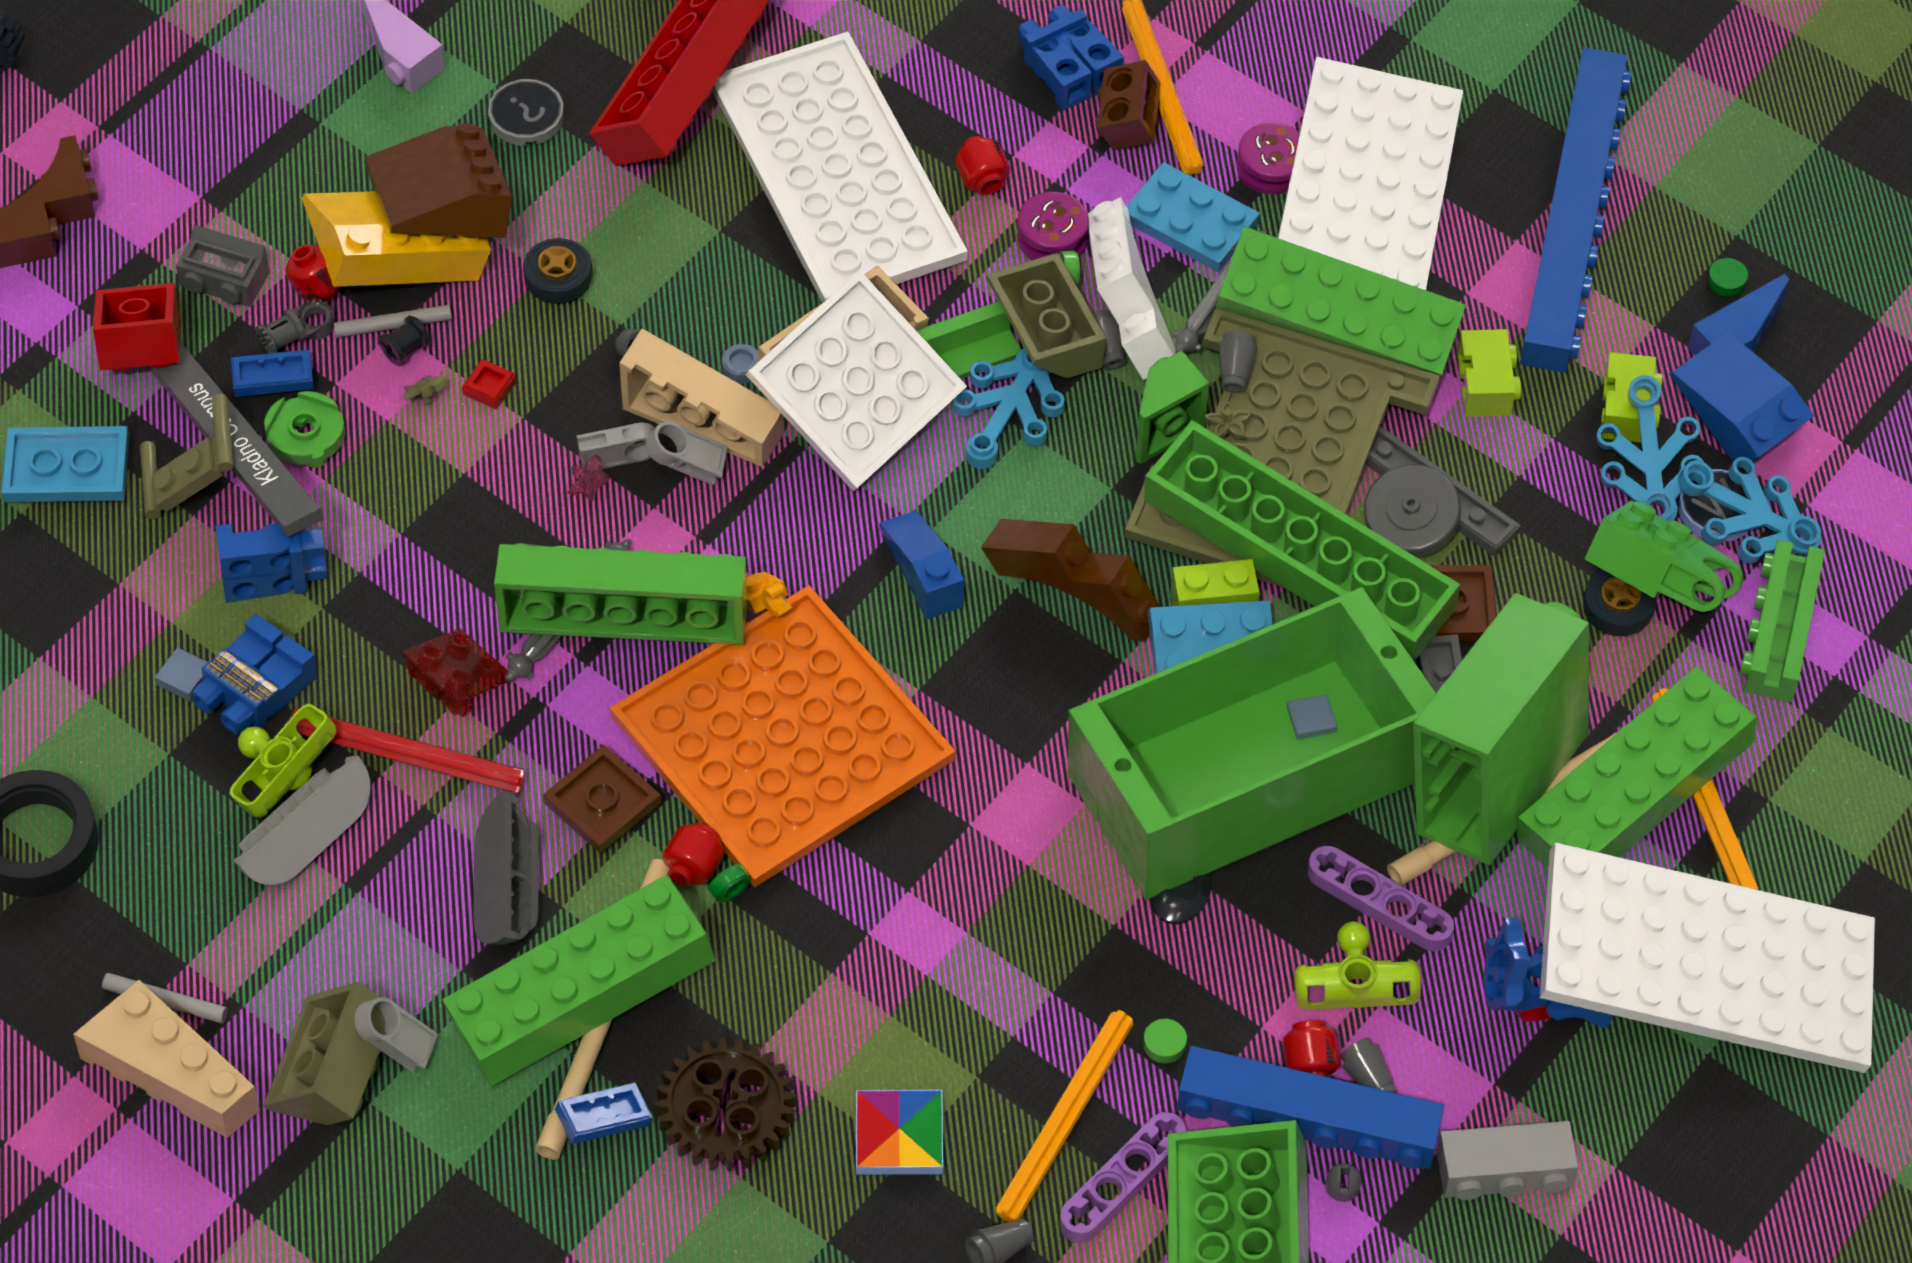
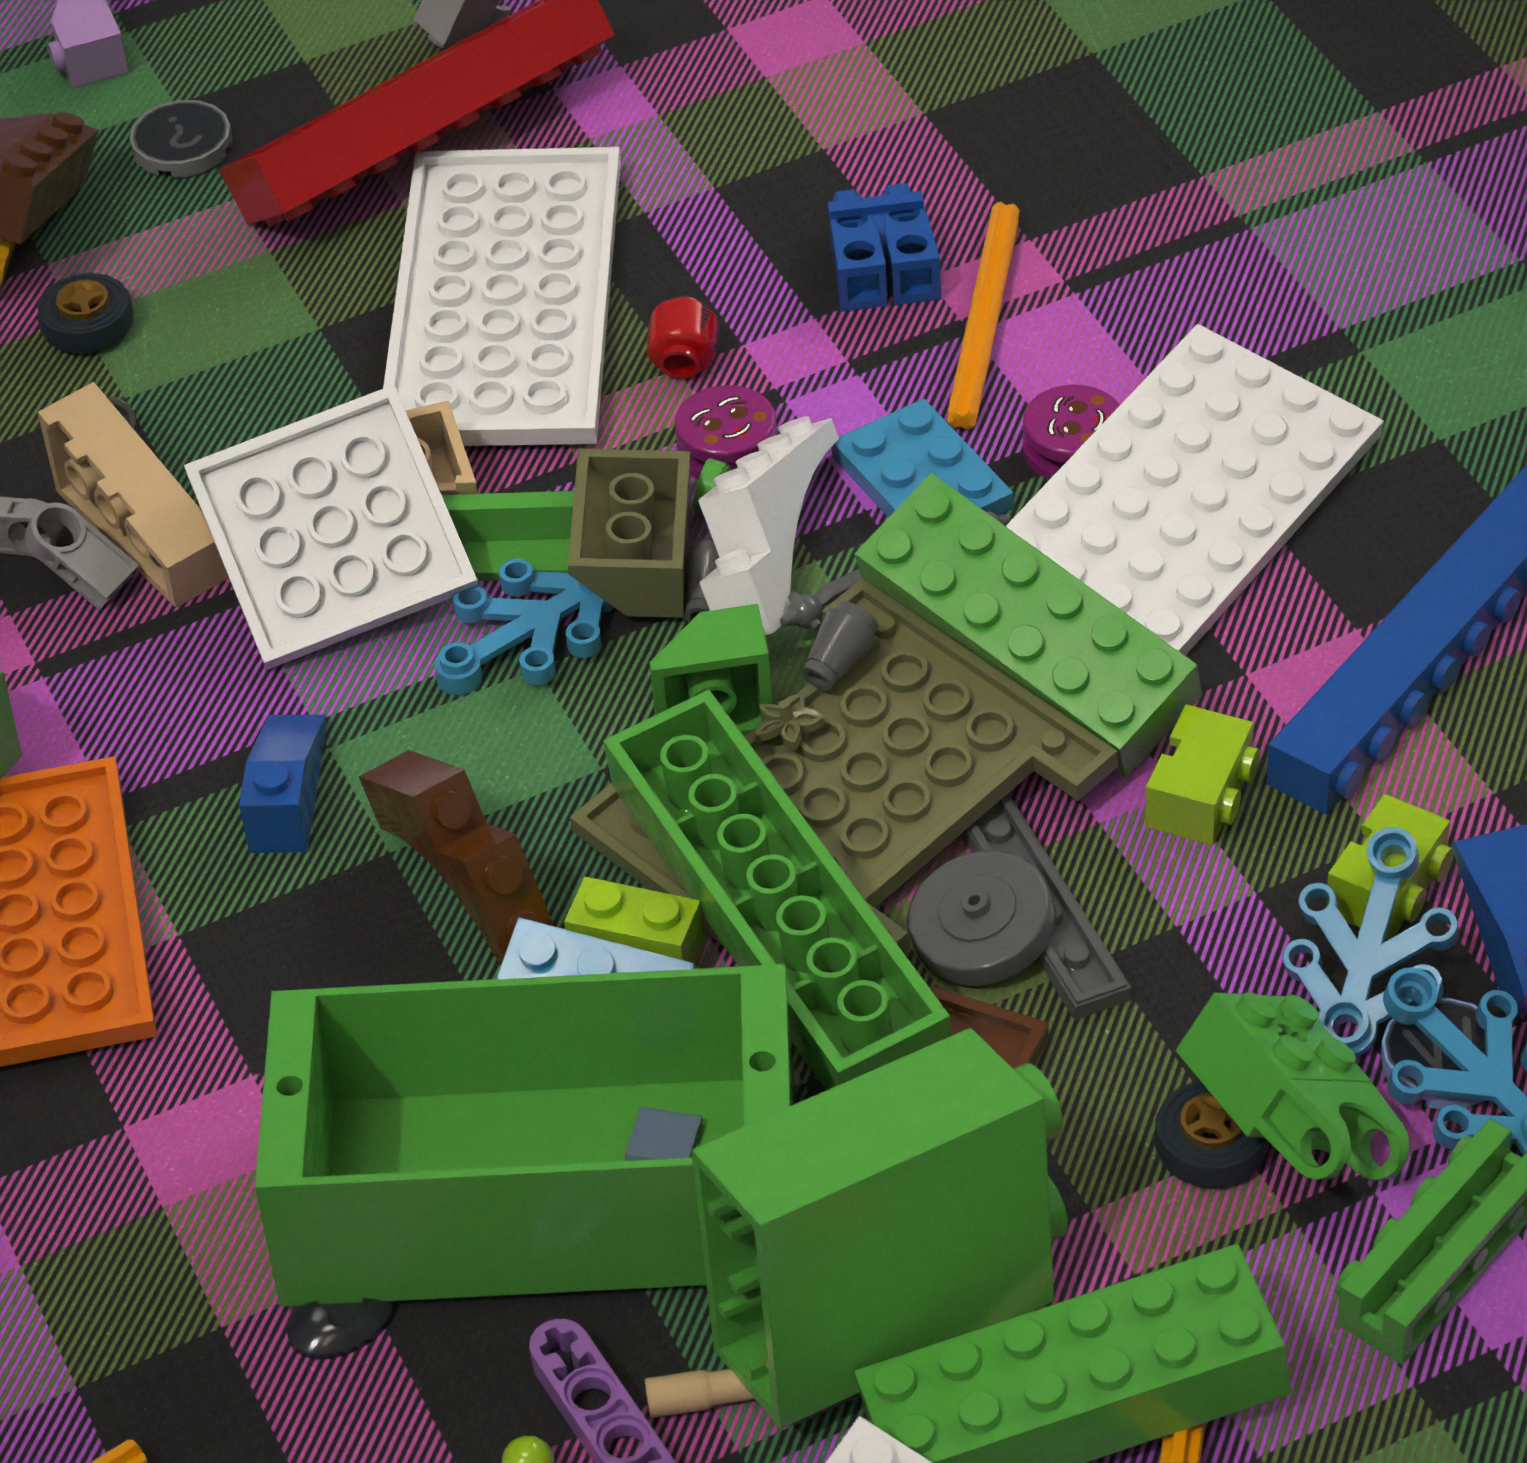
camera: 30 degrees right, 10 degrees down
(766, 592) = (51, 747): light orange plate -> none
(1128, 105) = (915, 318): reddish brown brick -> none

